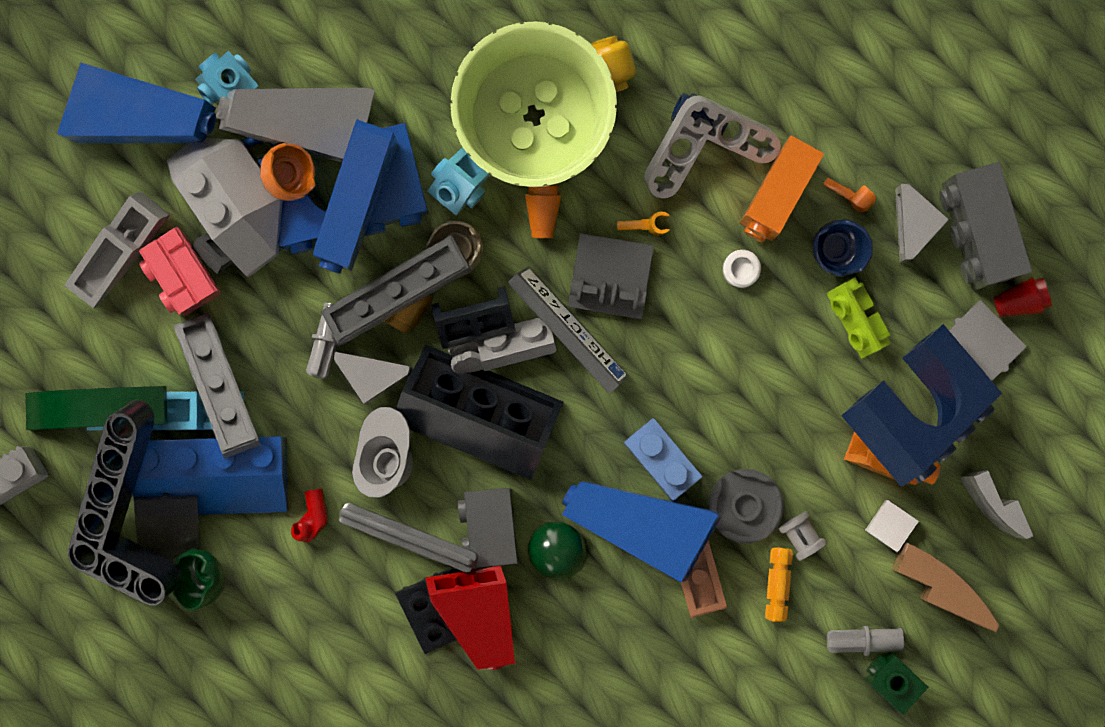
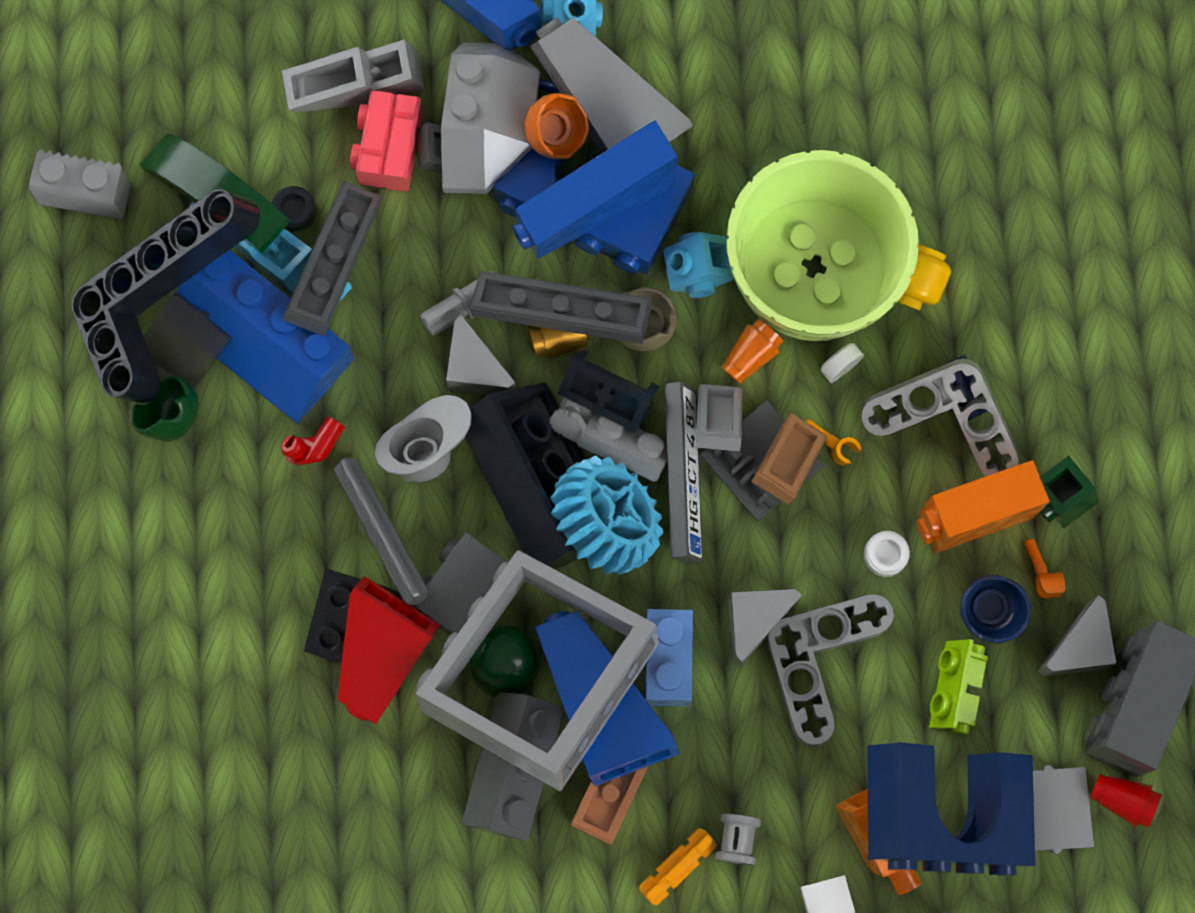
camera: 40 degrees right, 10 degrees down
(156, 370) = (297, 206): none -> black tile
(545, 403) = (606, 515): none -> medium azure gear
(561, 274) = (719, 417): none -> light grey tile
(607, 166) = (841, 362): none -> white tile
(624, 614) = (501, 794): none -> dark grey brick
(629, 262) = (789, 458): none -> medium nougat tile
(650, 534) = (596, 709): none -> light grey window
(695, 385) = (754, 616): none -> light grey slope
(743, 368) = (812, 642): none -> light grey beam
(748, 505) = (710, 770): dark grey tile -> none
(825, 132) = (1068, 493): none -> dark green brick

